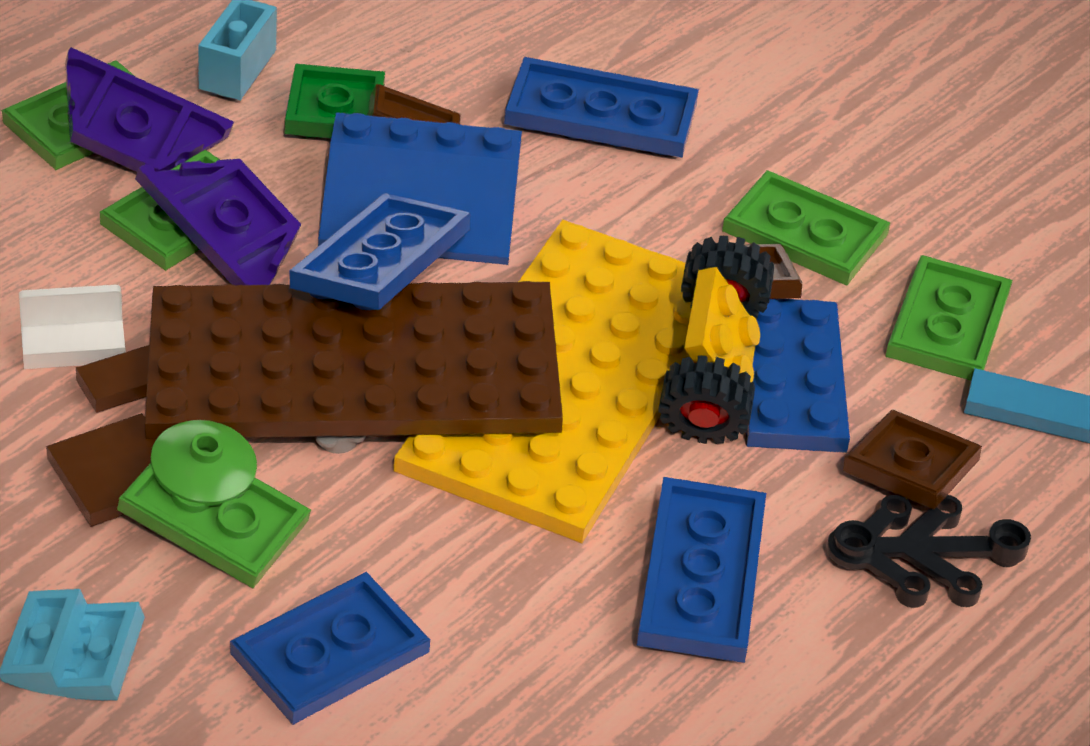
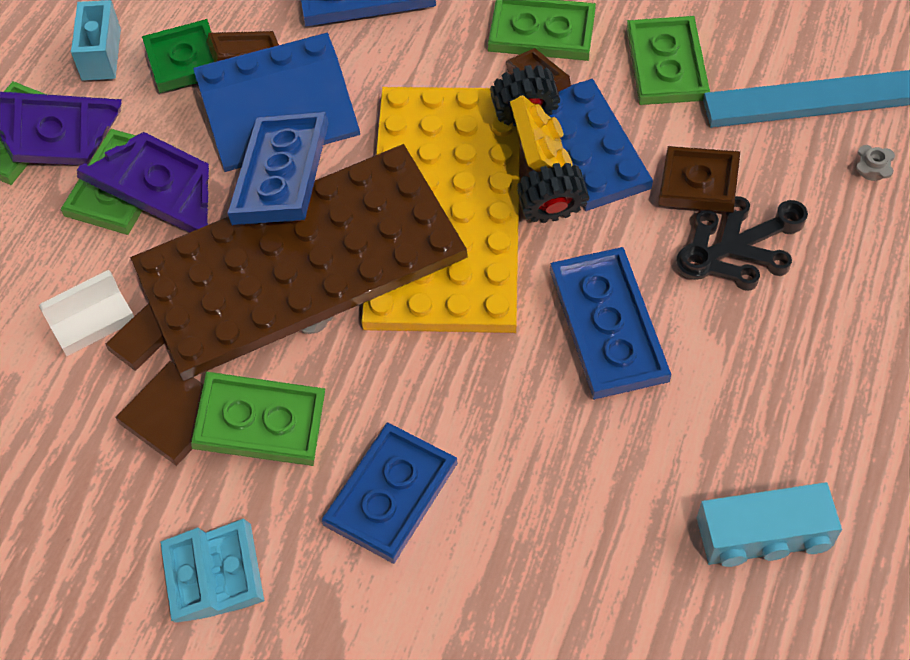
camera: 15 degrees left, 15 degrees up
(203, 476) = (233, 401): bright green dish -> none

